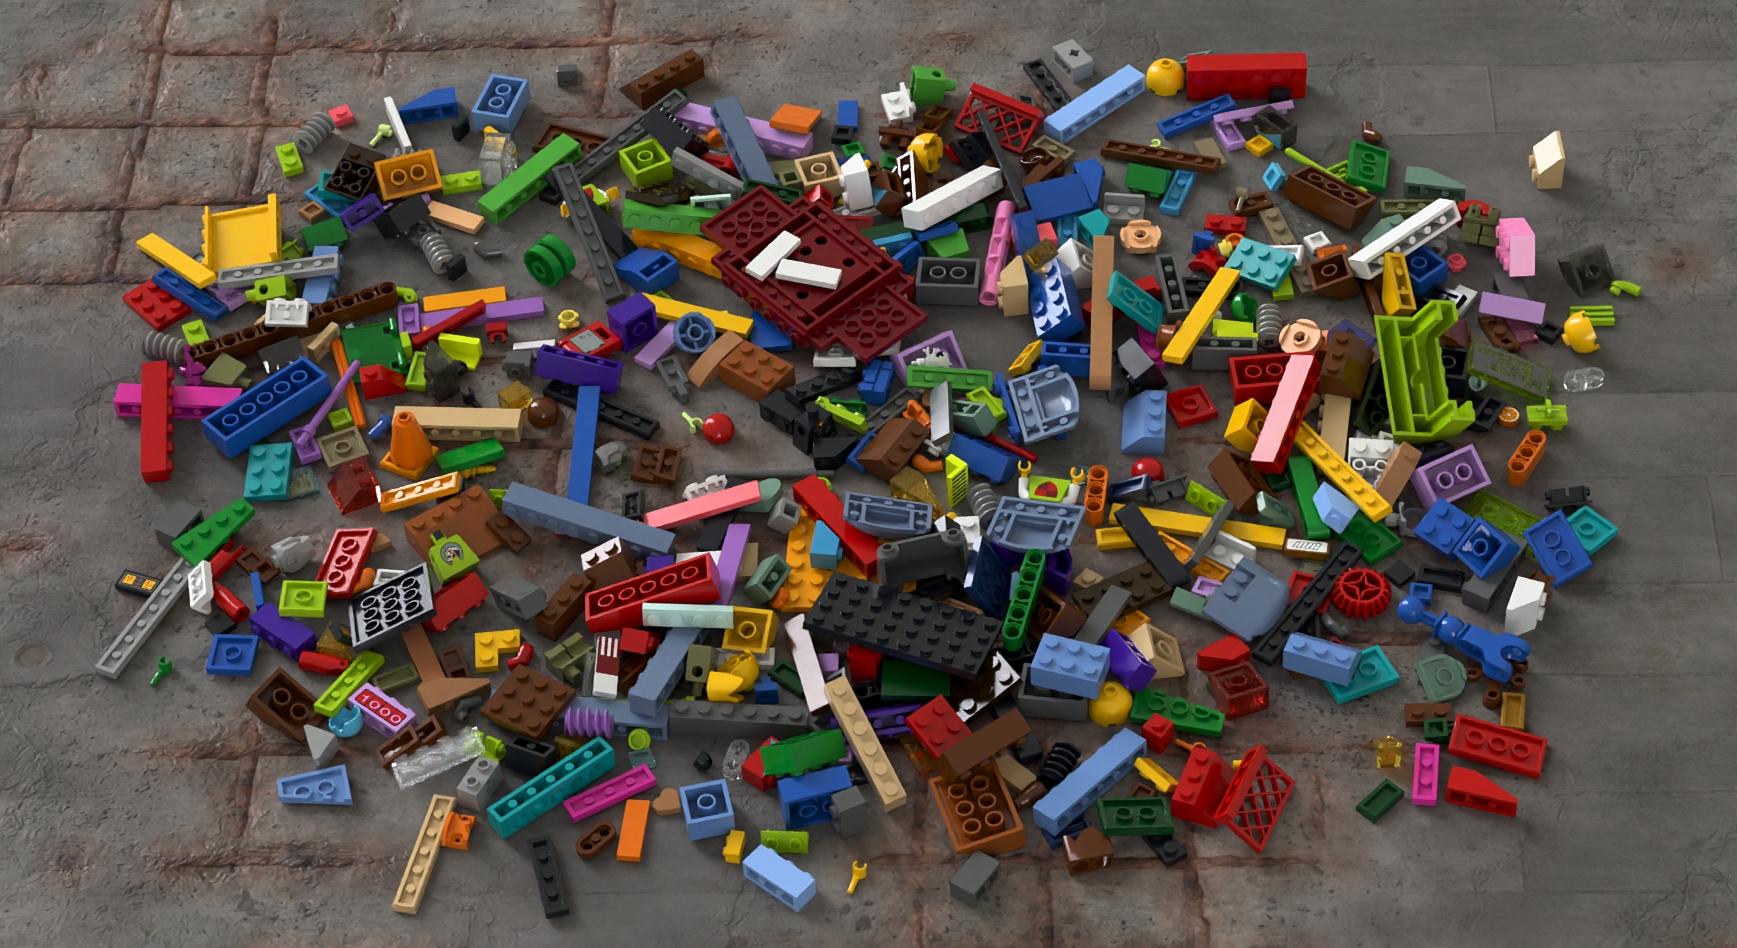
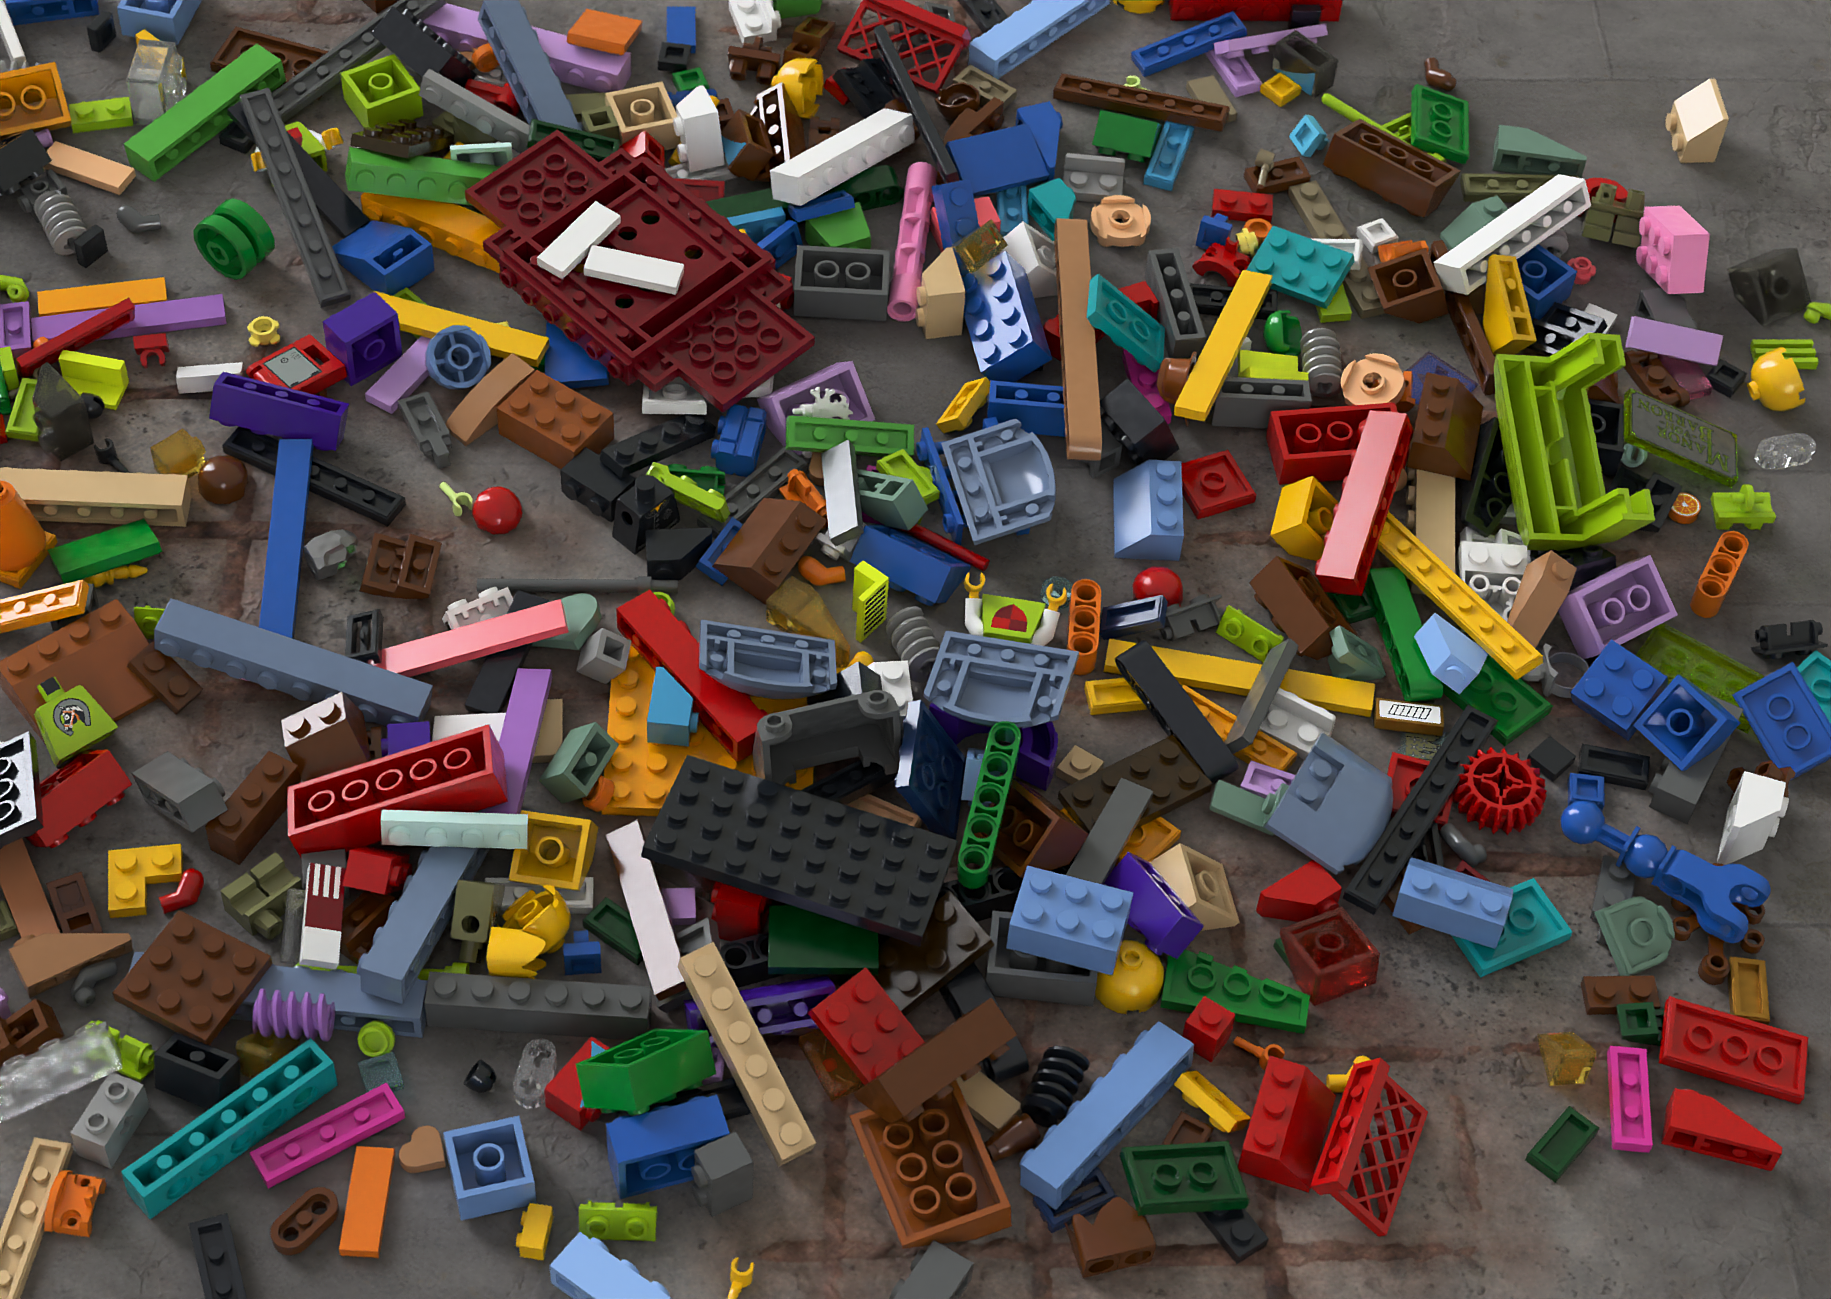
camera: 10 degrees left, 5 degrees up
(519, 364) = (185, 402): dark grey brick -> none
(888, 162) = (743, 100): green tile -> none

